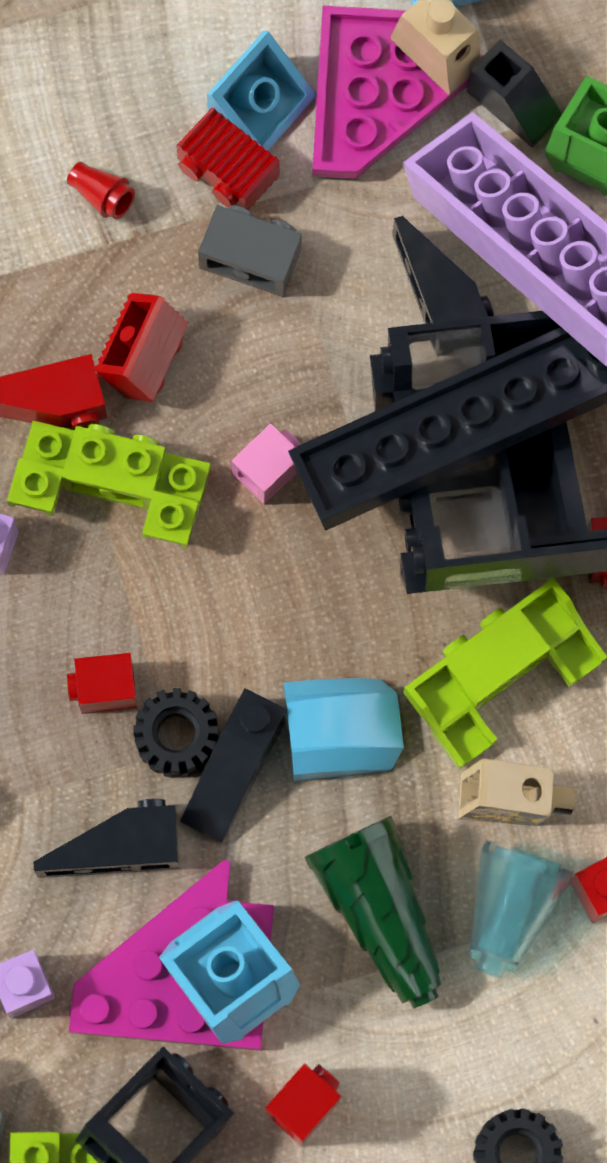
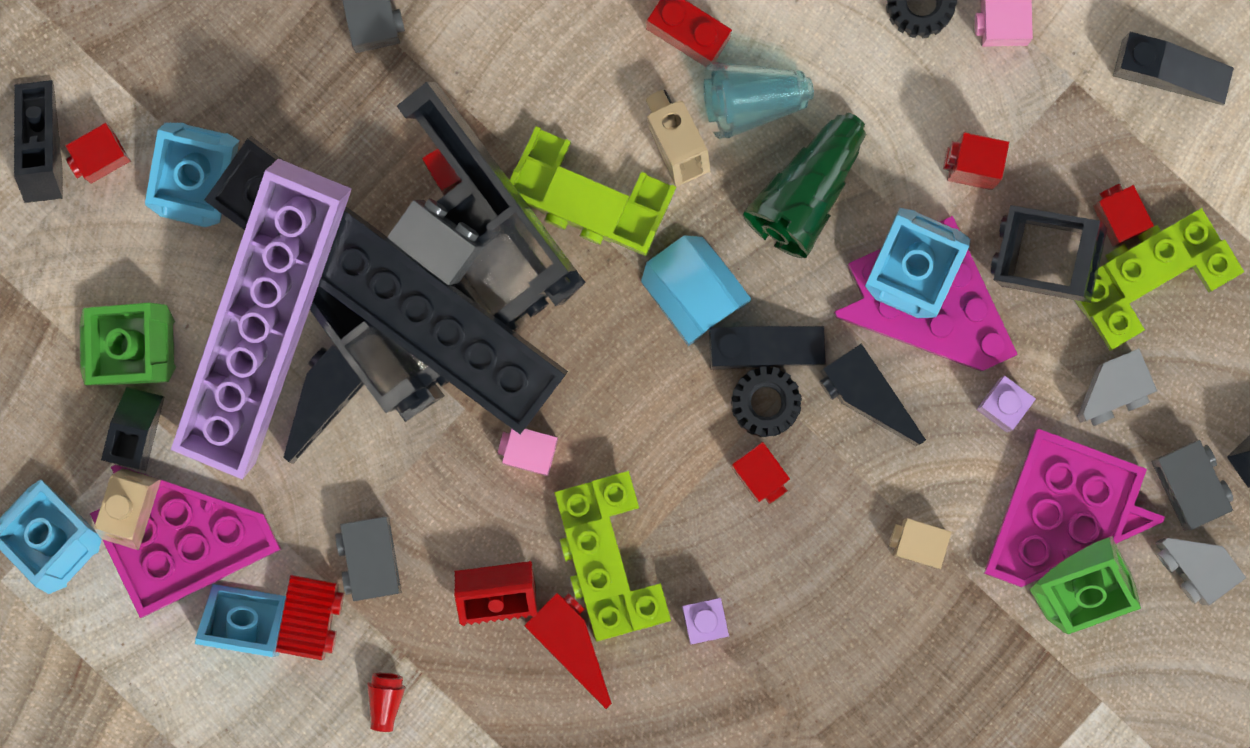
camera: 120 degrees left, 10 degrees up
(538, 468) = (436, 240): none -> brick

